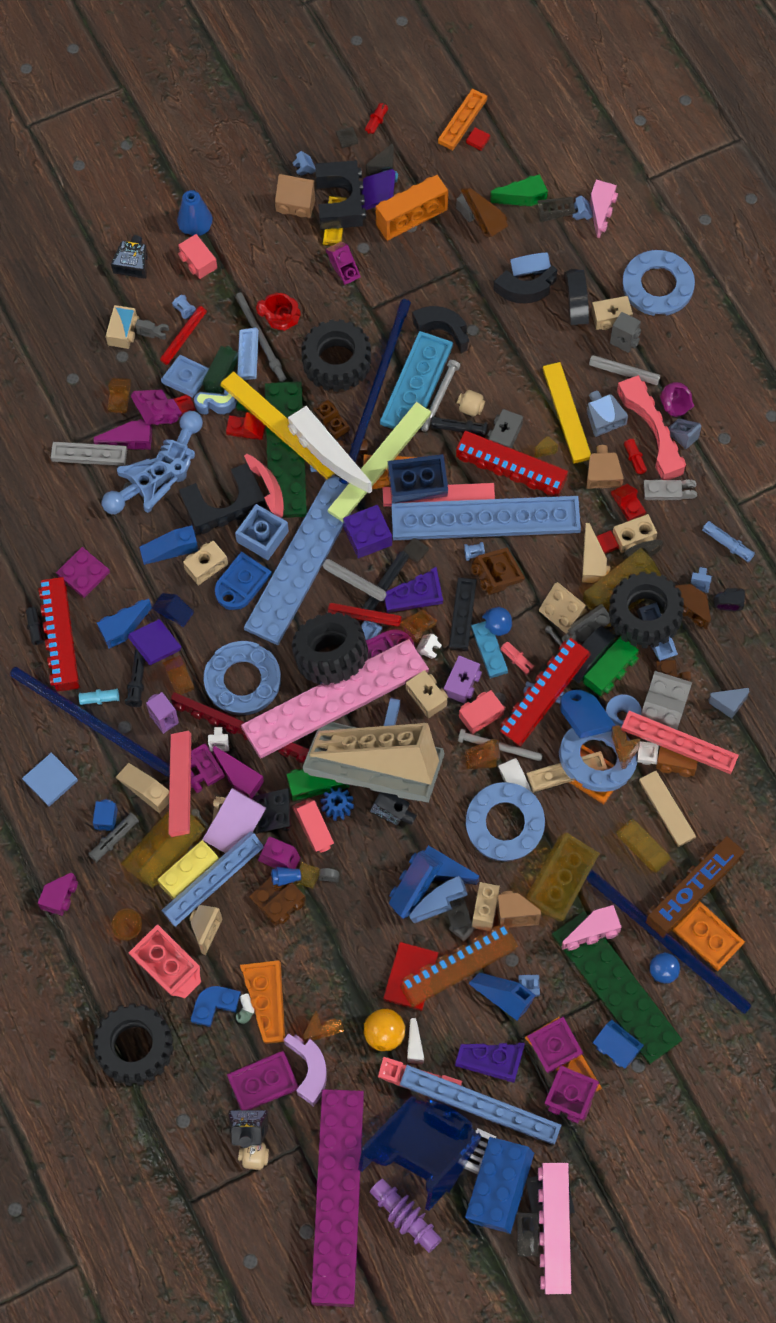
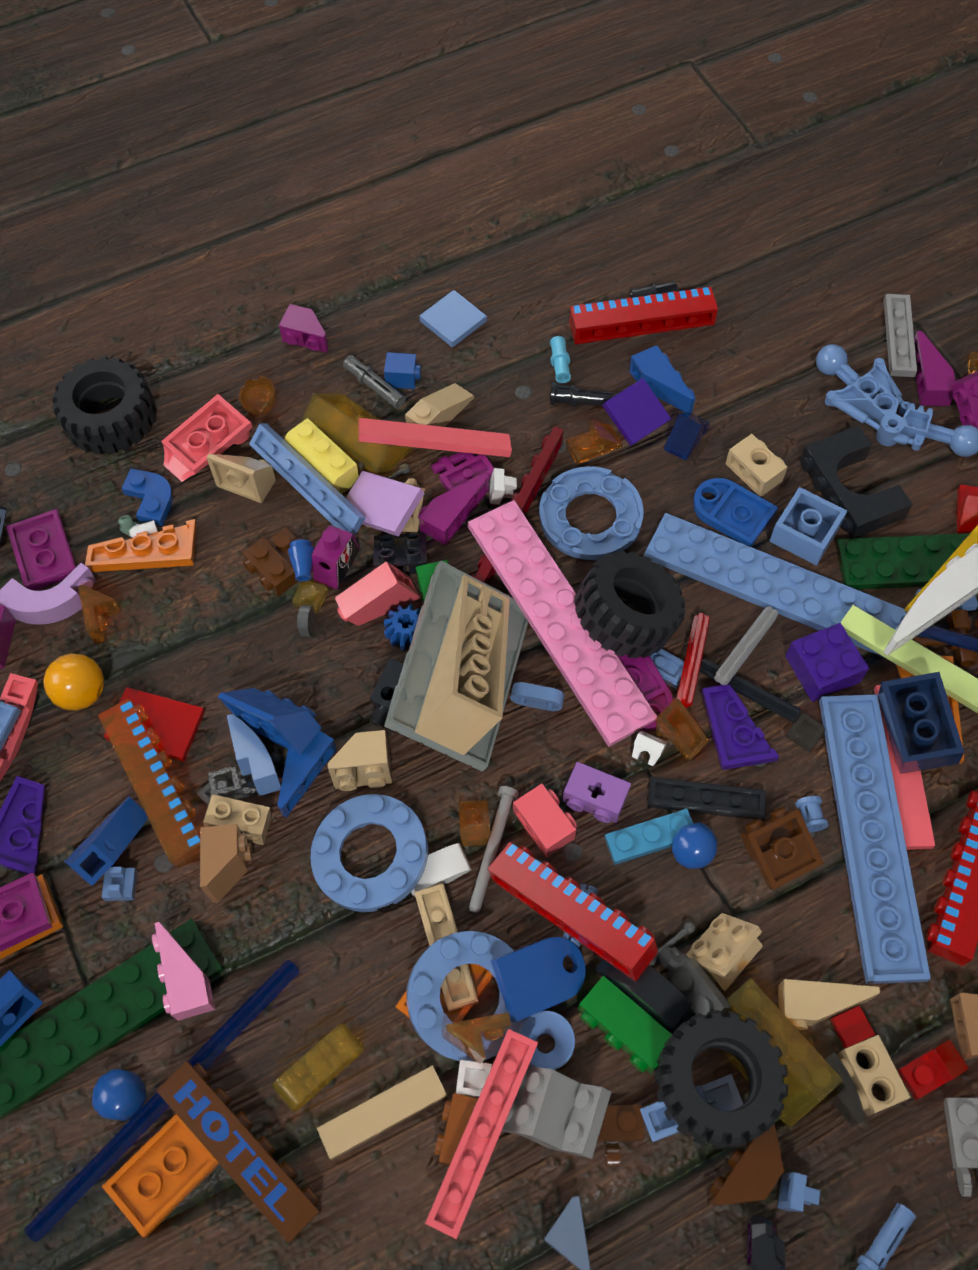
camera: 90 degrees right, 5 degrees down
(83, 572) = (731, 338): magenta plate -> none
(91, 721) = (527, 356): clear blue axle -> none
(162, 712) = (534, 417): medium lavender brick -> none
(170, 545) = (779, 428): blue slope -> none
(275, 498) = (882, 532): coral slope -> none
(415, 1051) = (48, 725): white slope -> none
(428, 703) = (577, 730): tan brick -> none
(443, 823) = (362, 762): none -> tan slope
(517, 657) = (636, 876): coral axle -> none
(562, 876) = (271, 931): clear yellow slope -> none

